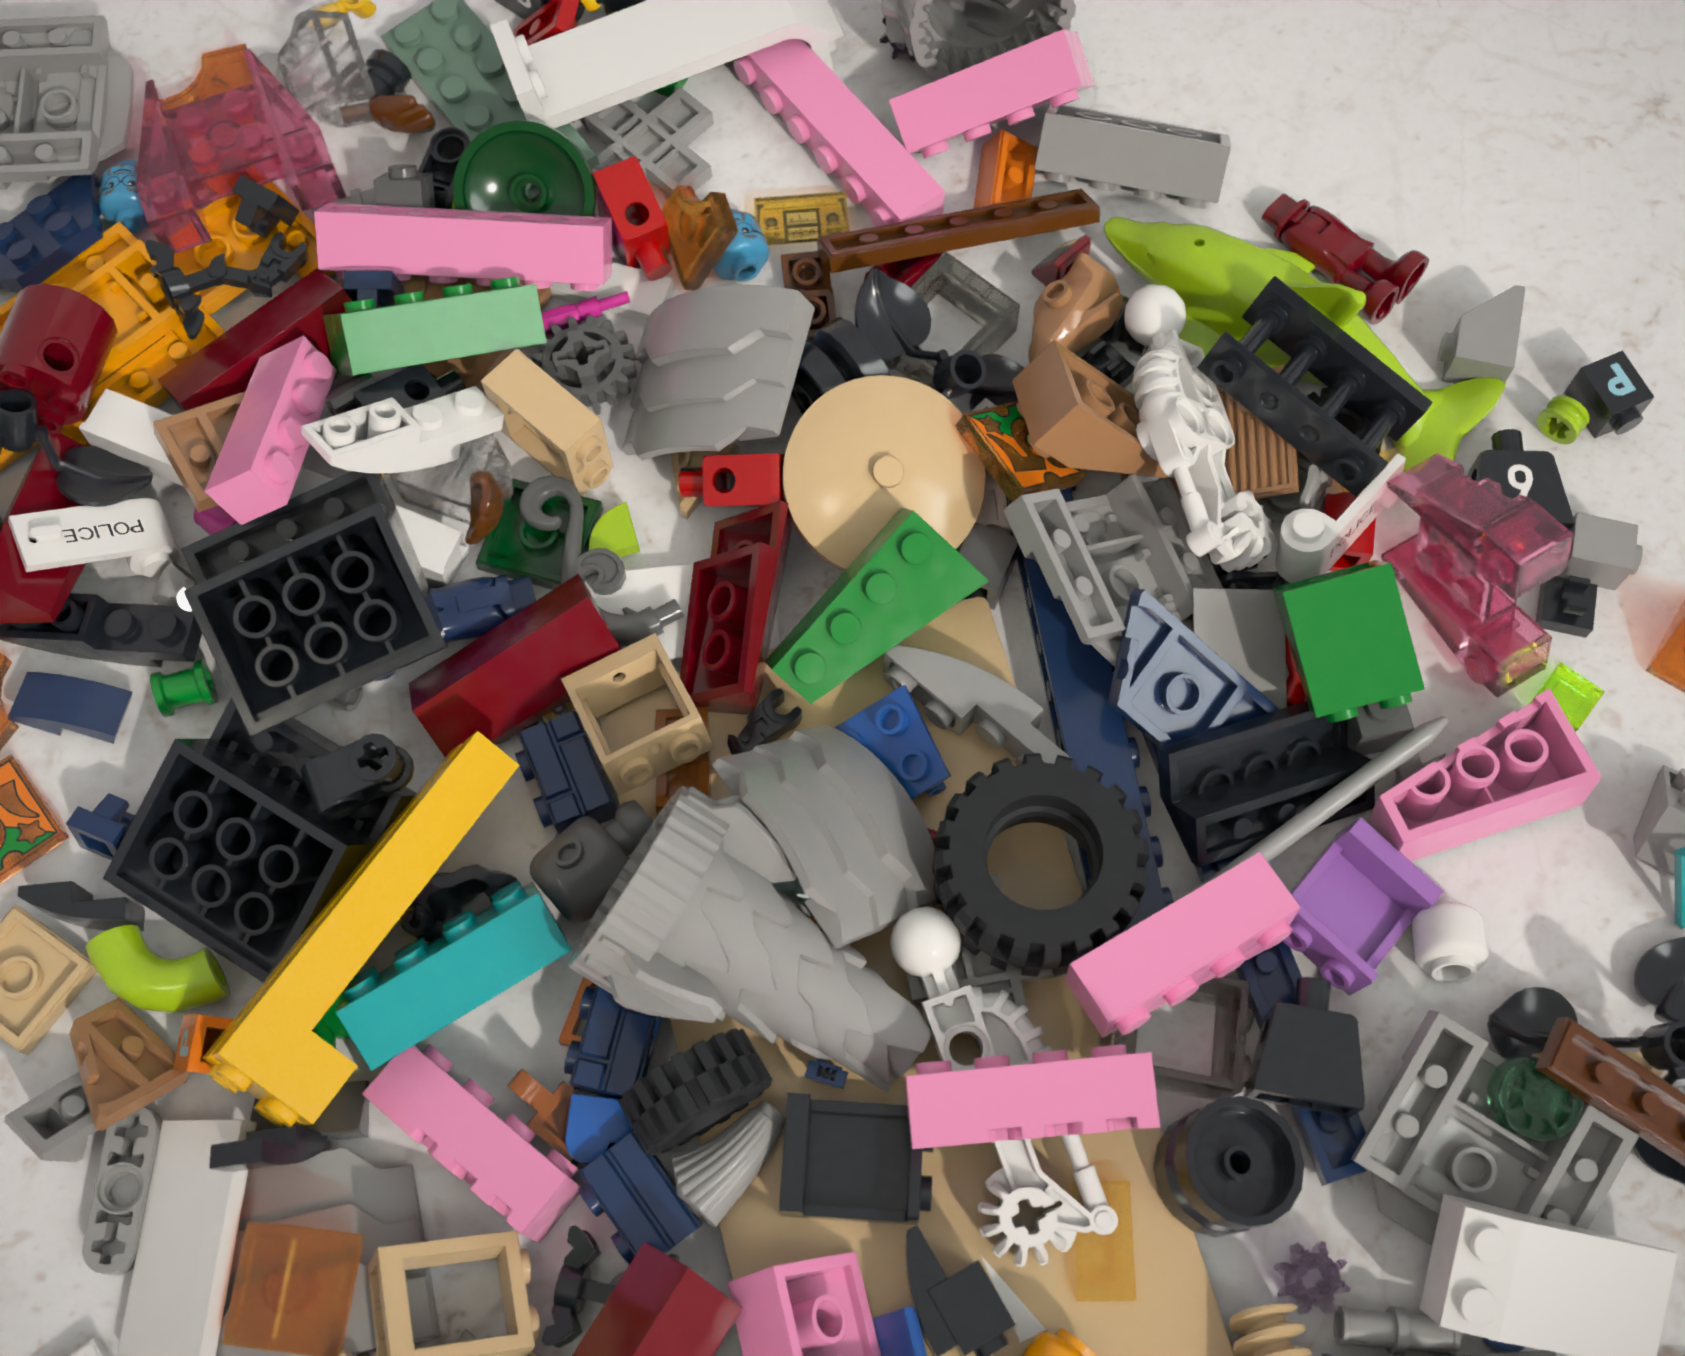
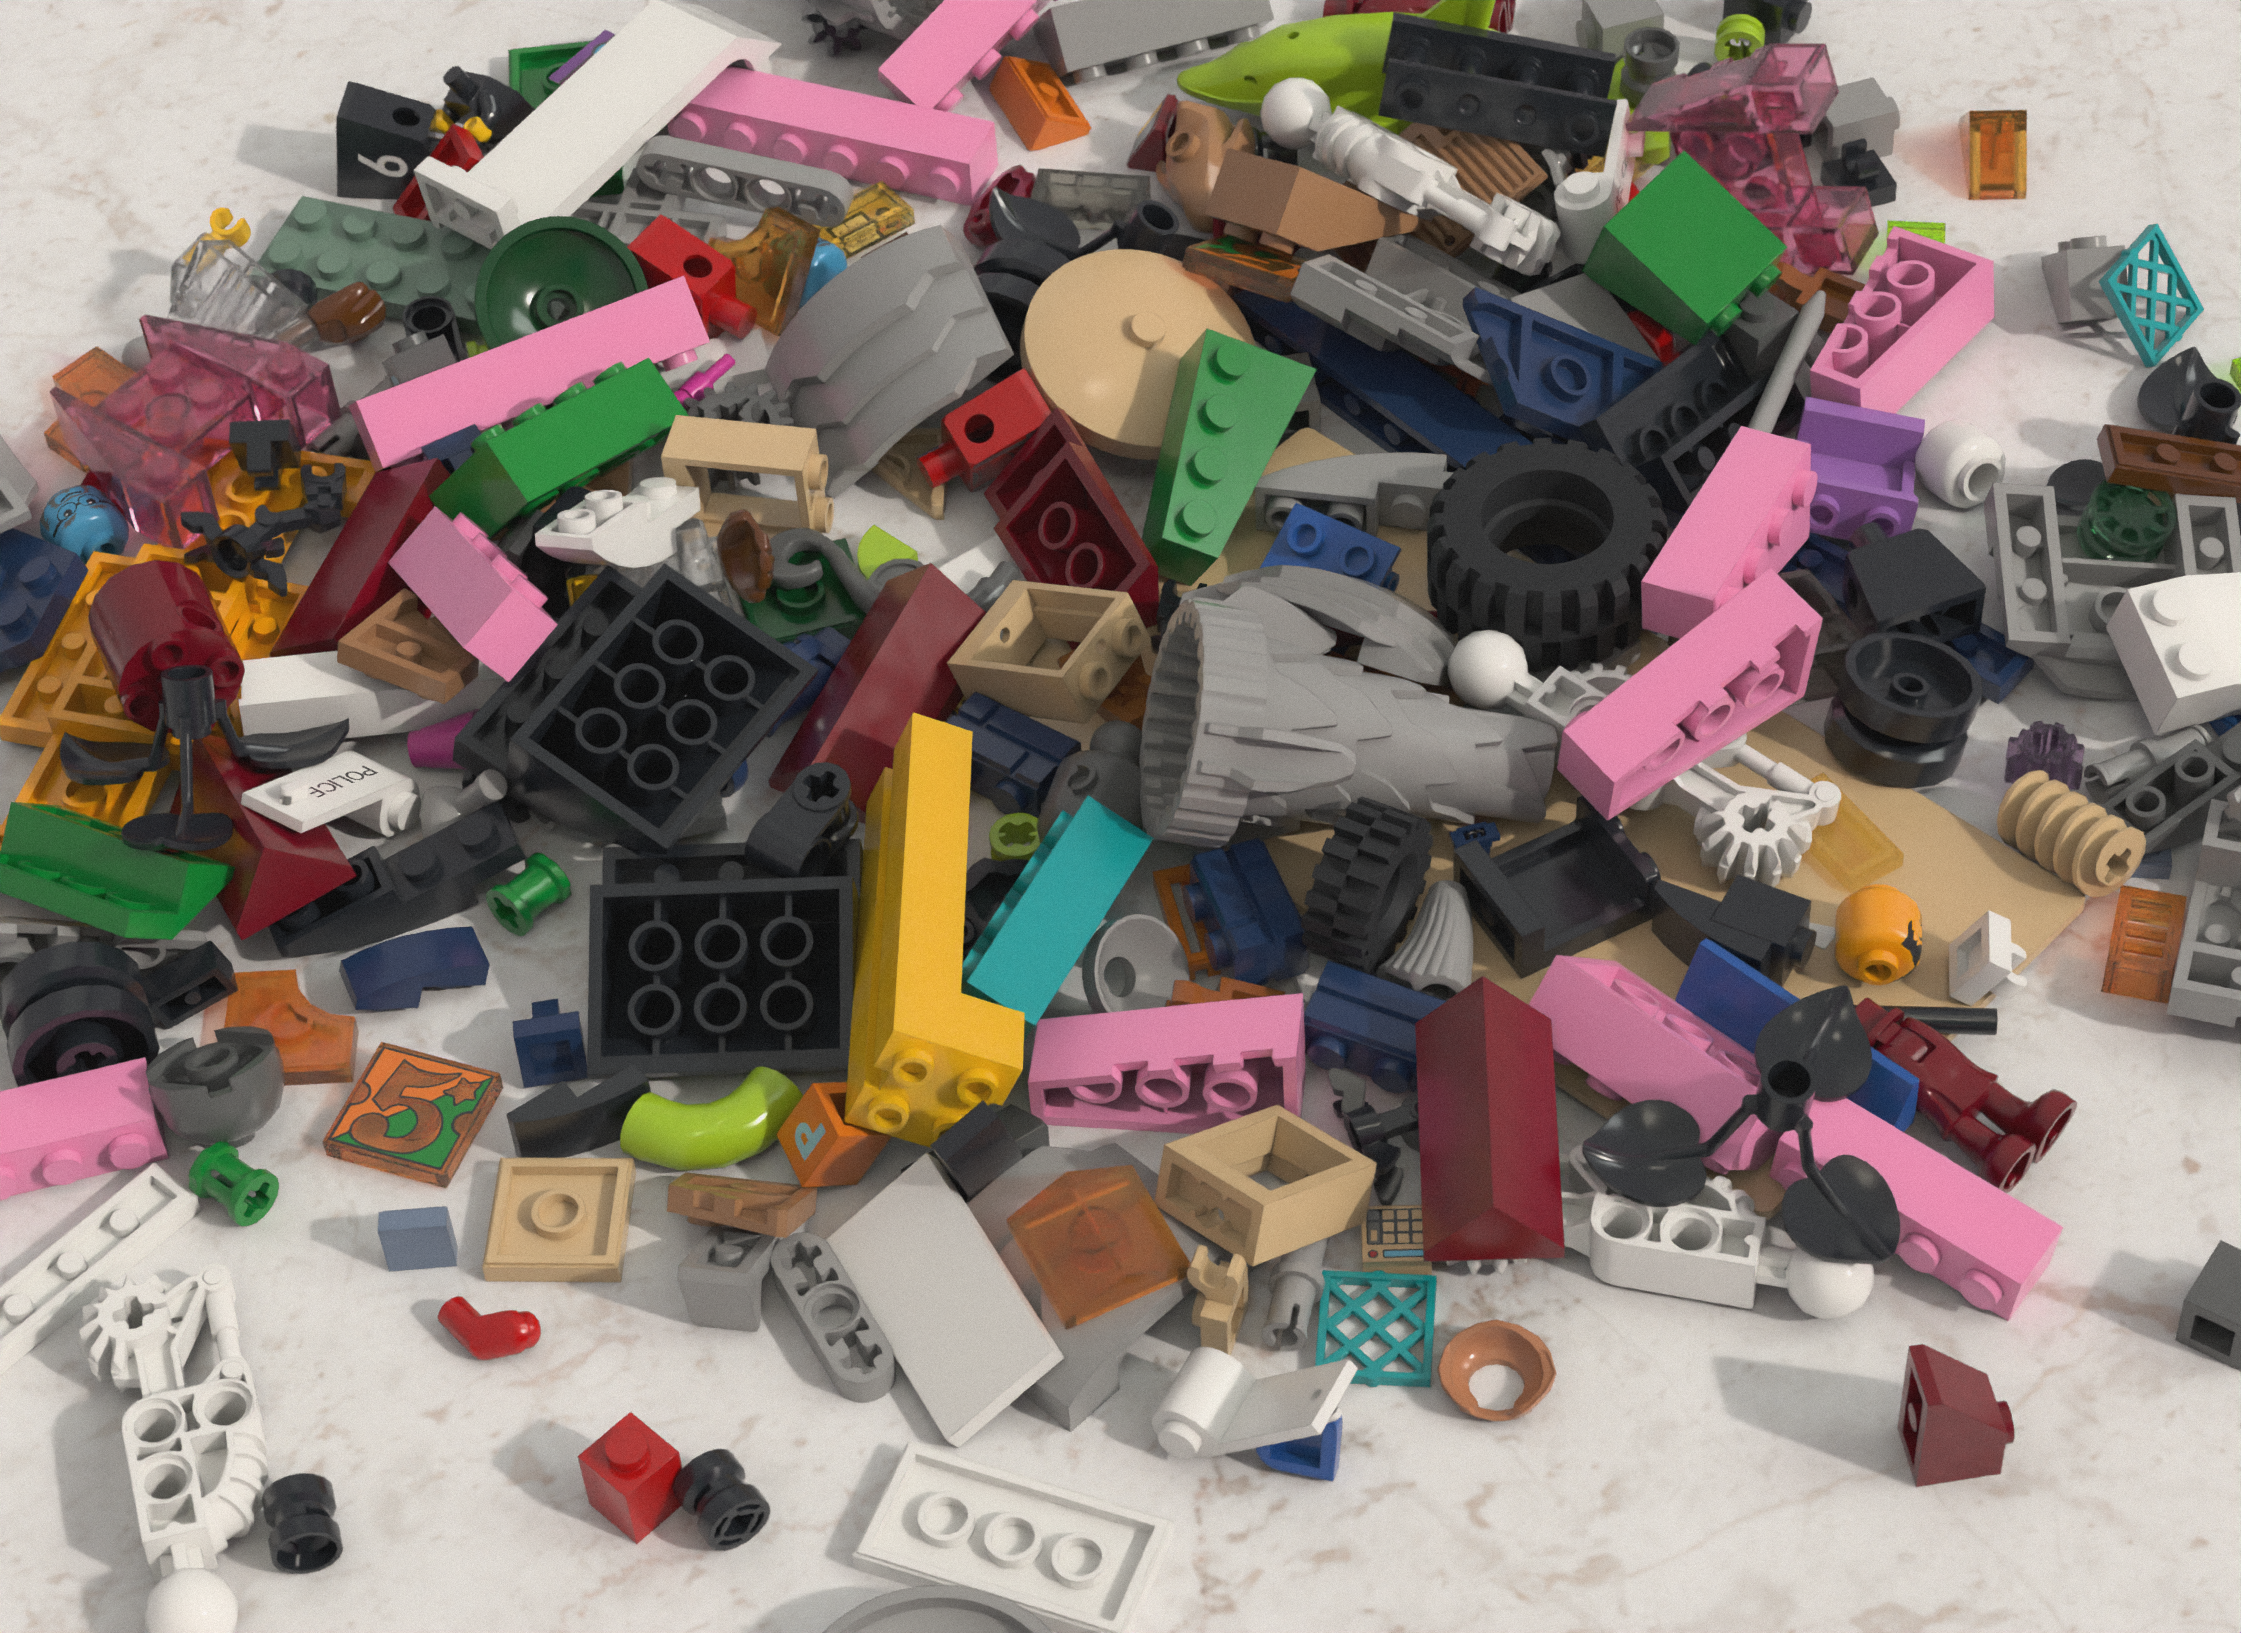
camera: 30 degrees left, 20 degrees down
(499, 1056) = (1148, 955): none -> light grey piece
(514, 842) = (1019, 830): none -> lime bush
(593, 1125) = (1280, 977): blue tile -> none
(737, 146) = (744, 172): none -> light grey beam
(957, 230) = (1033, 149): reddish brown tile -> none
(1462, 706) = (1797, 288): none -> dark orange plate
(1465, 415) = (1655, 63): none -> dark grey wheel

